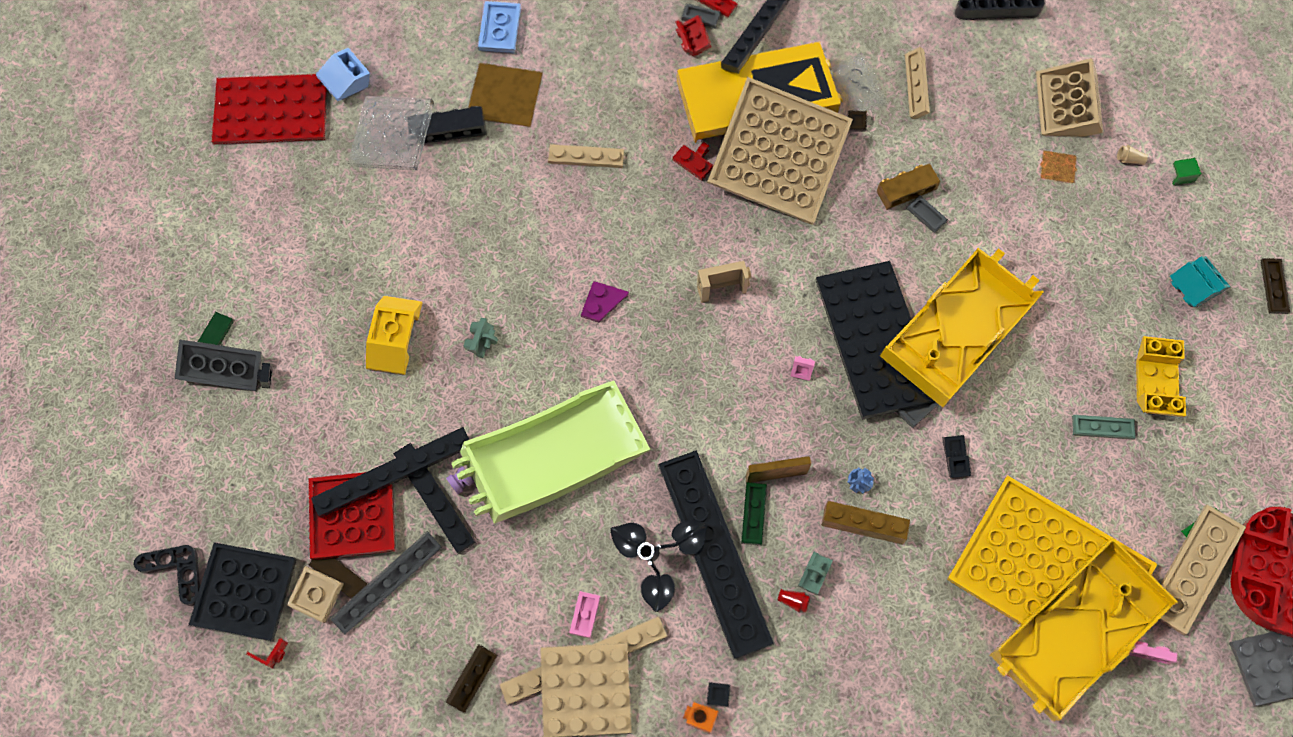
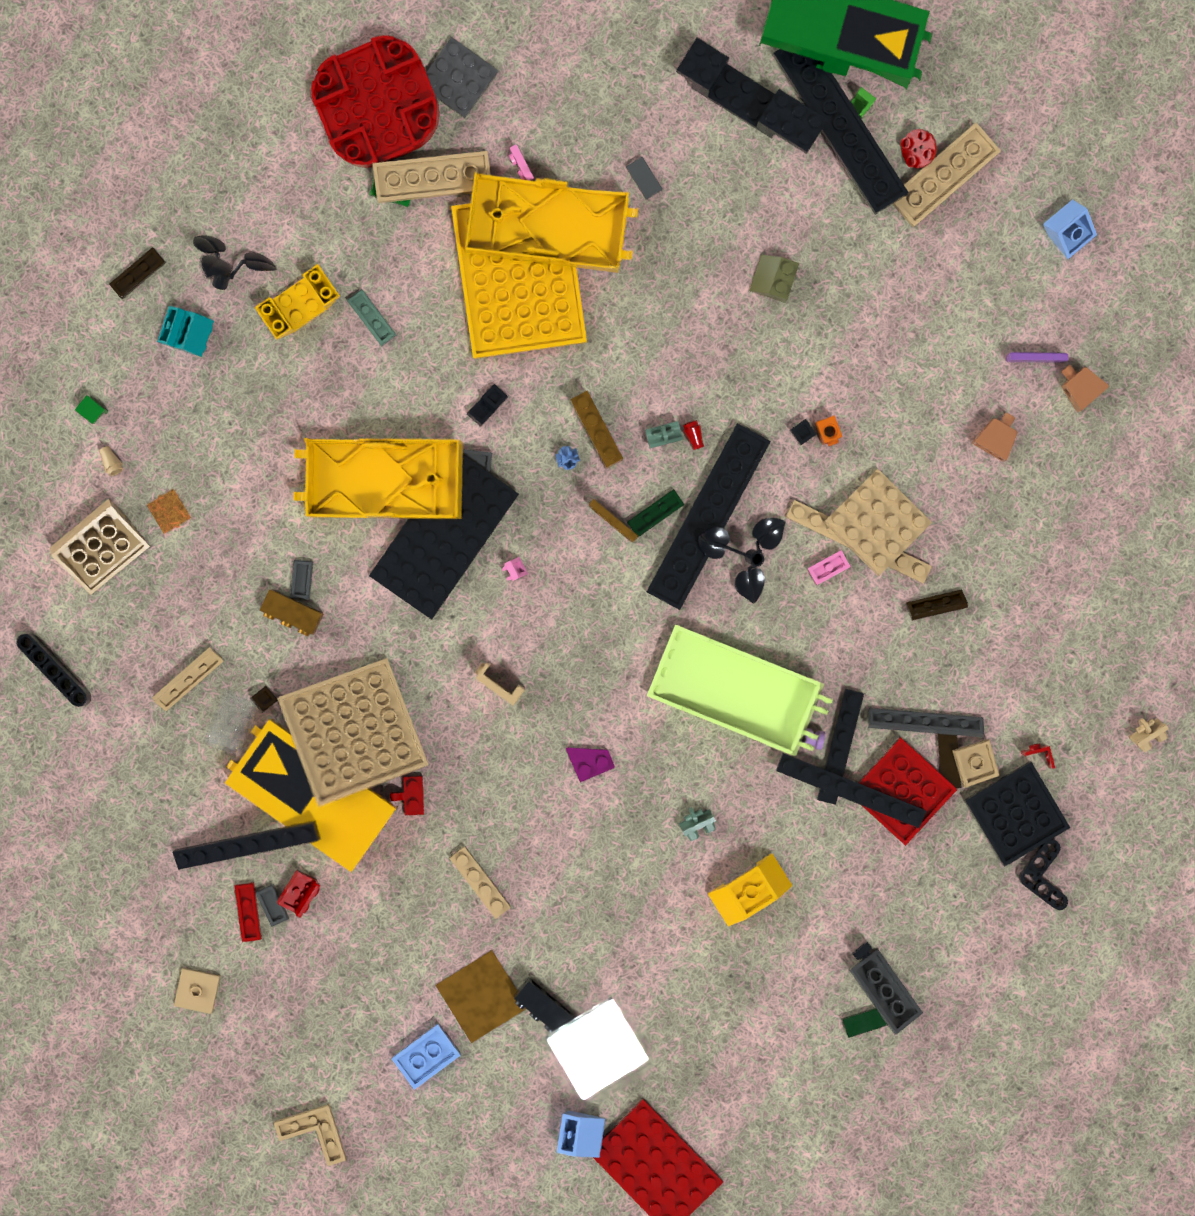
camera: 130 degrees left, 20 degrees up
(1248, 327) = (222, 270): none -> black plant

